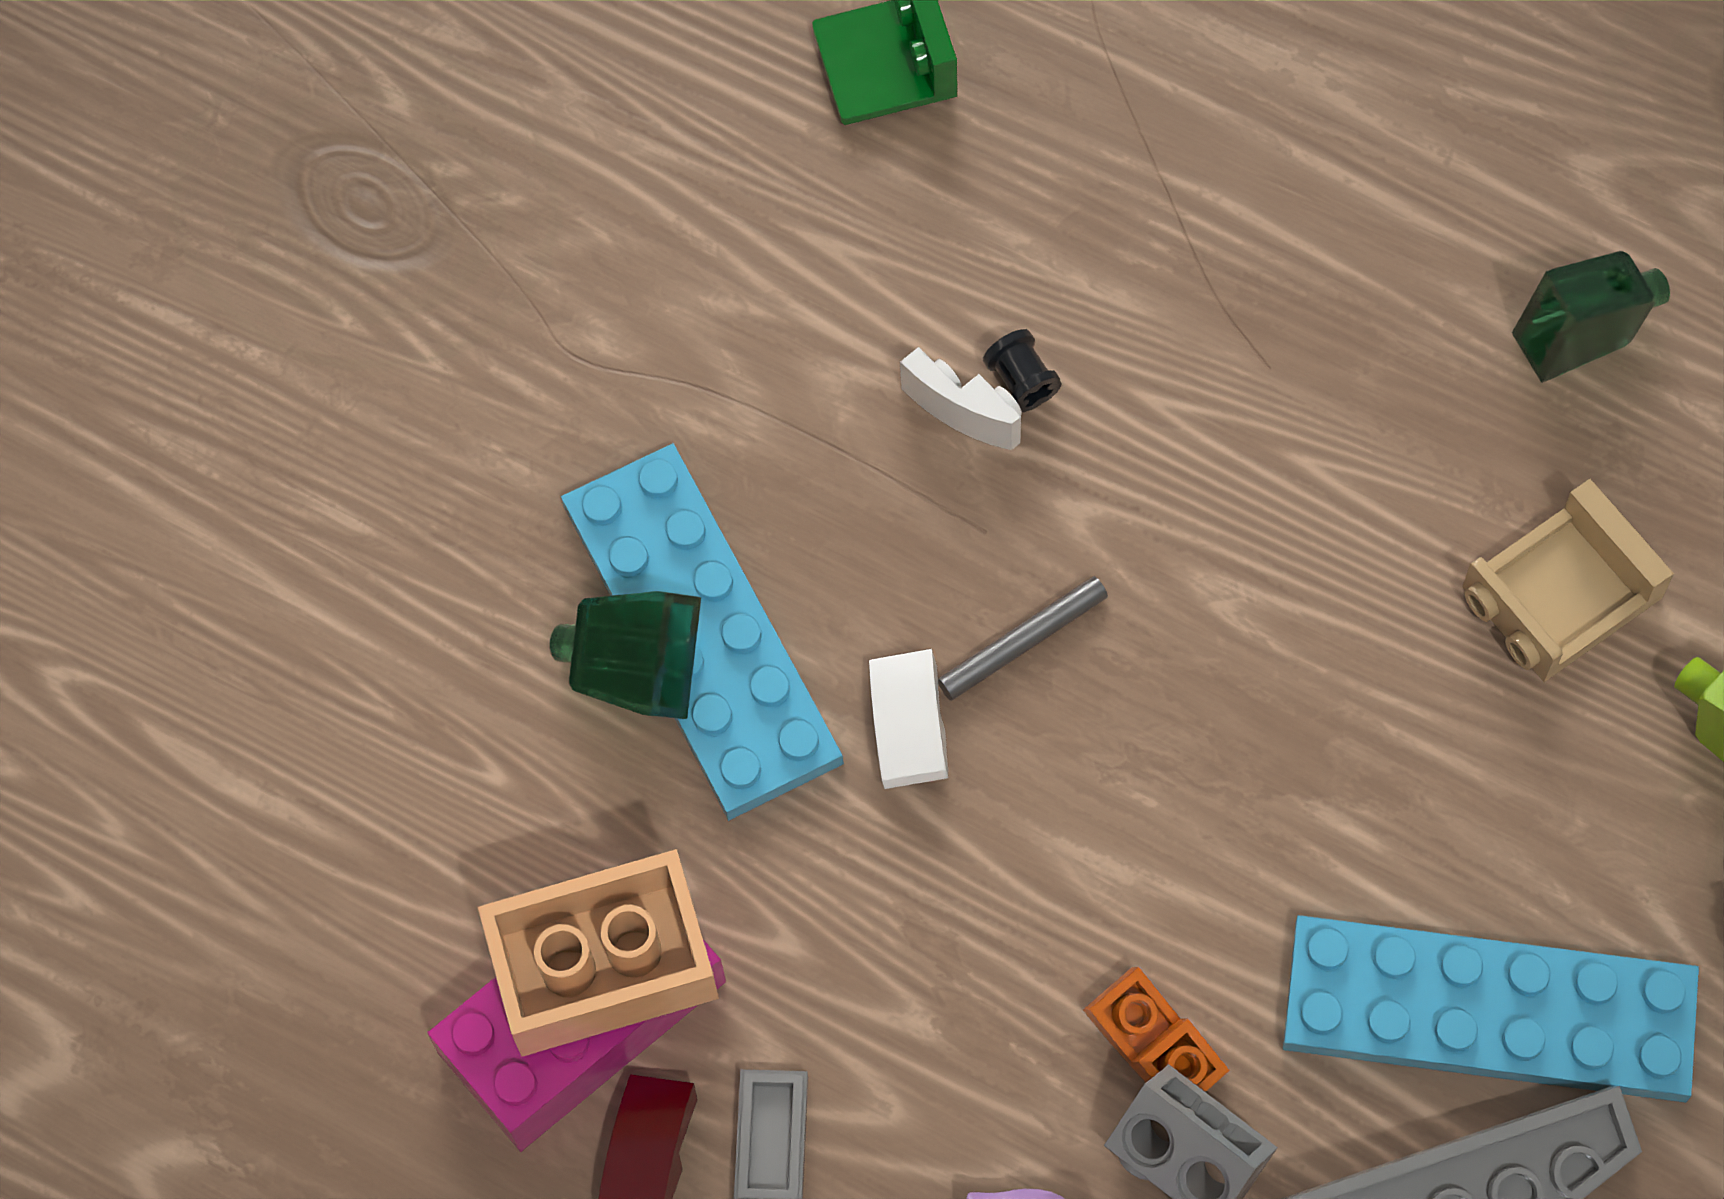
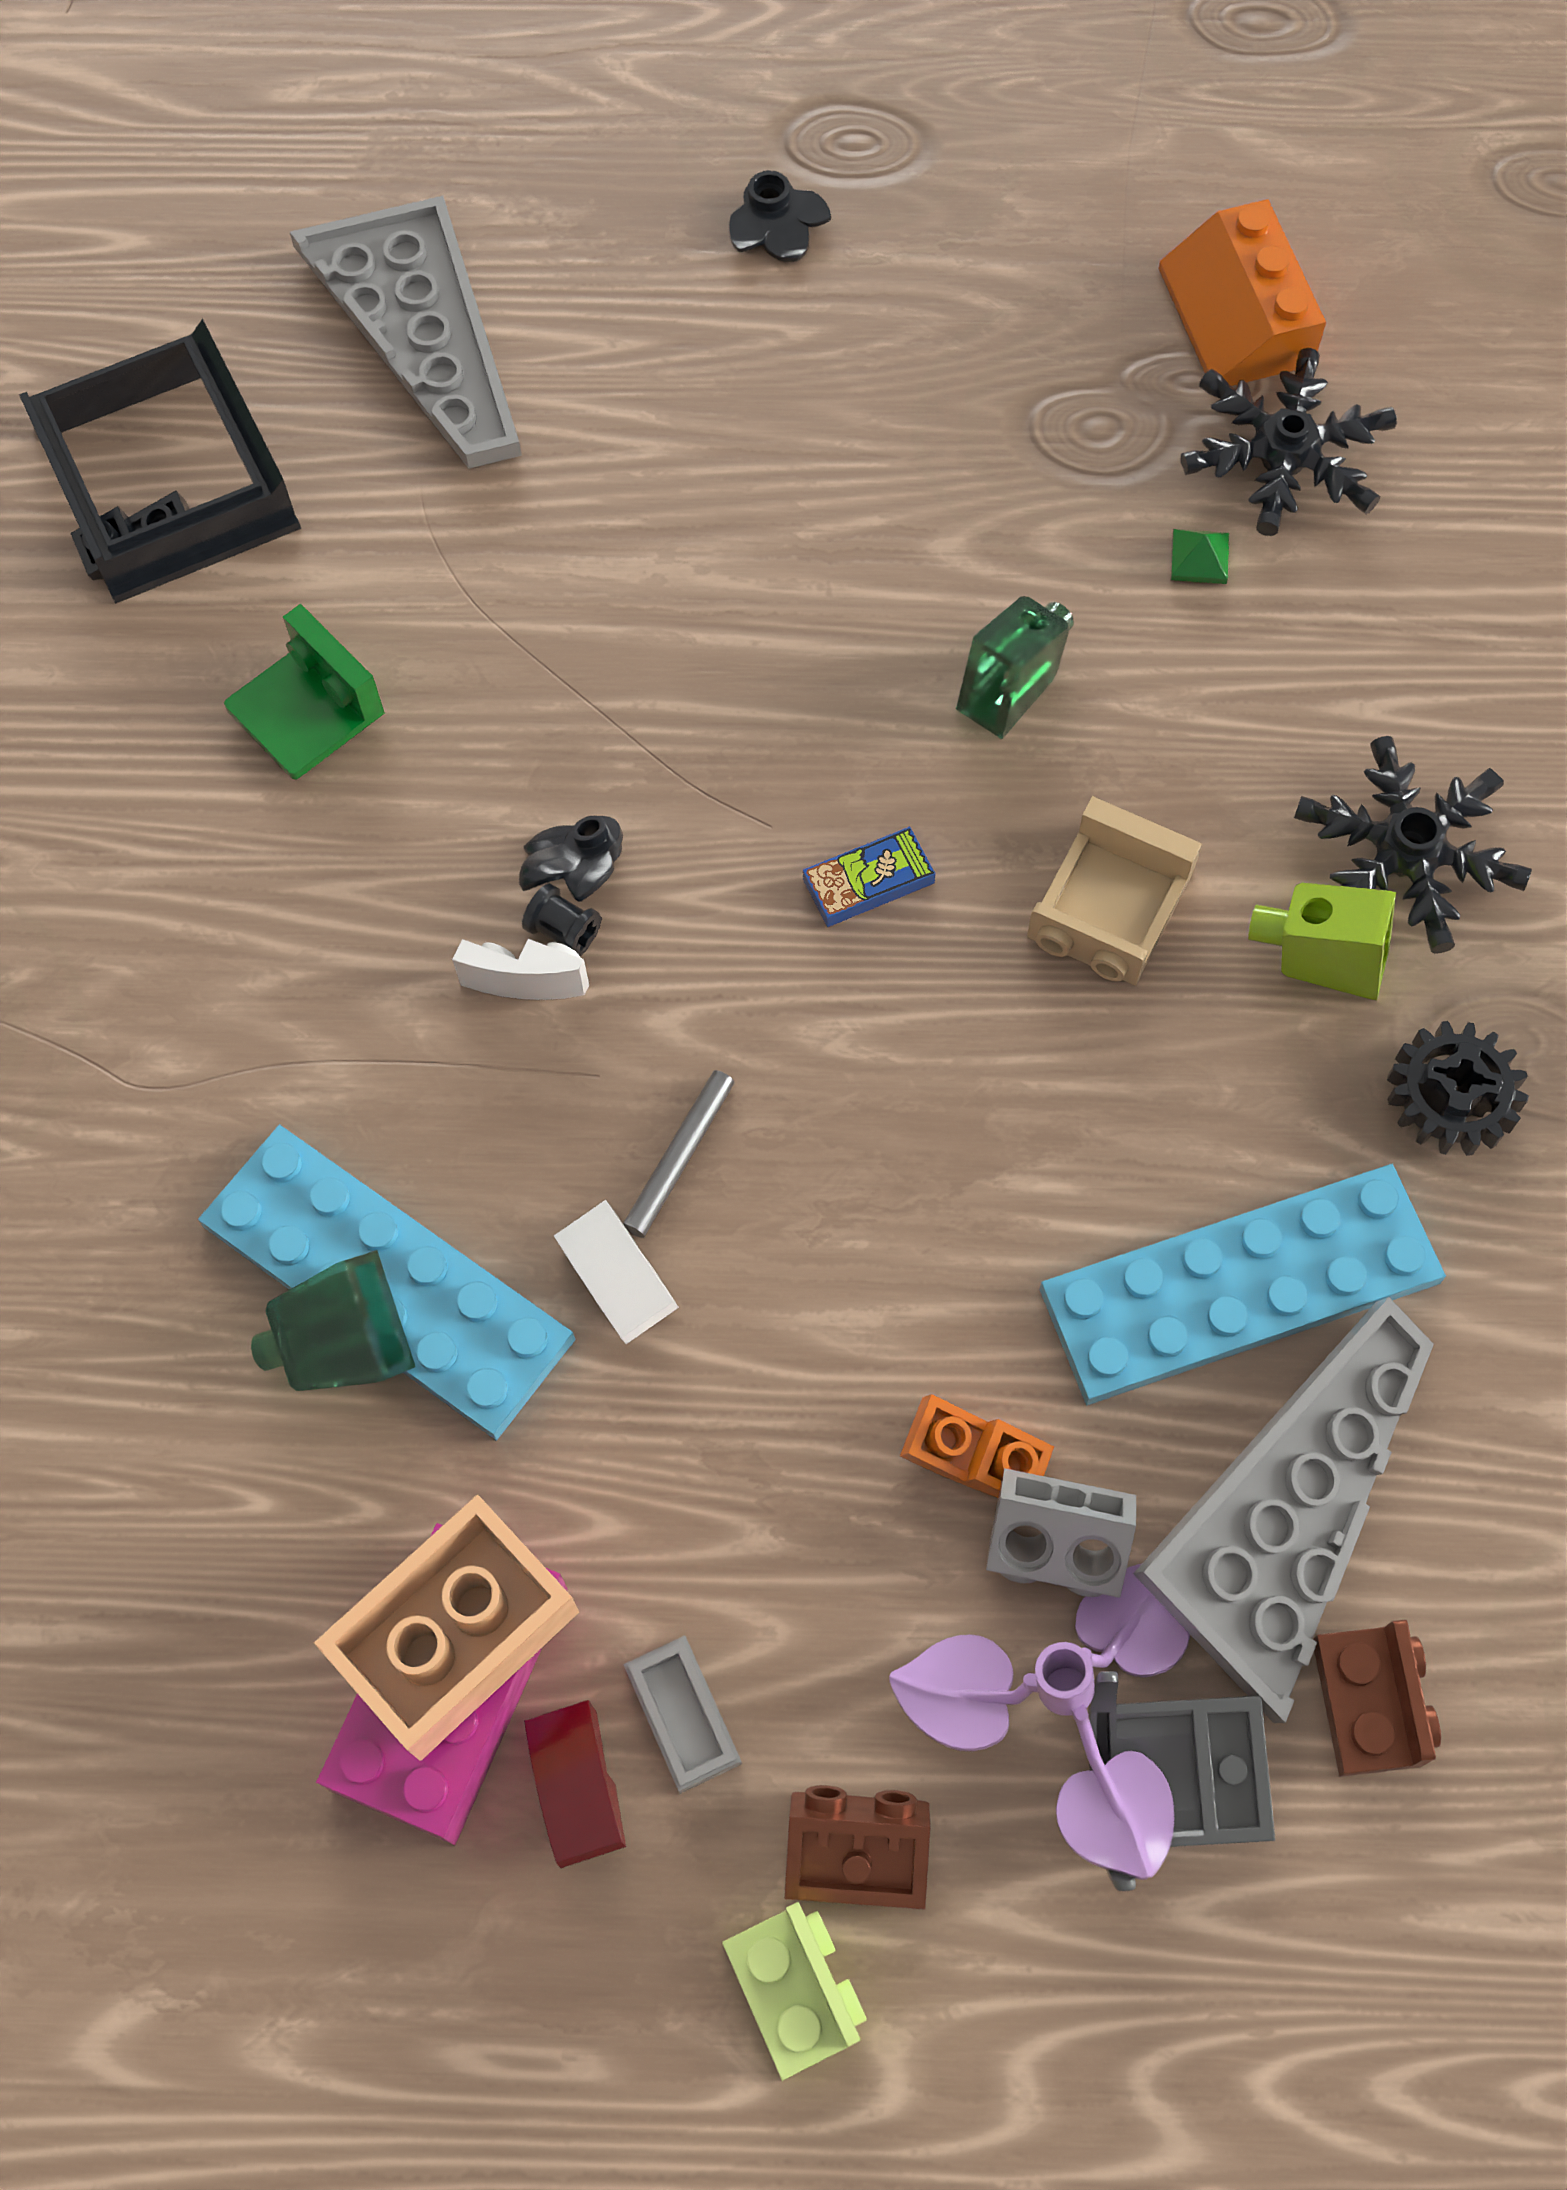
camera: 30 degrees left, 0 degrees up
(1066, 312) = (577, 853): none -> black plate
(1337, 459) = (868, 876): none -> tile

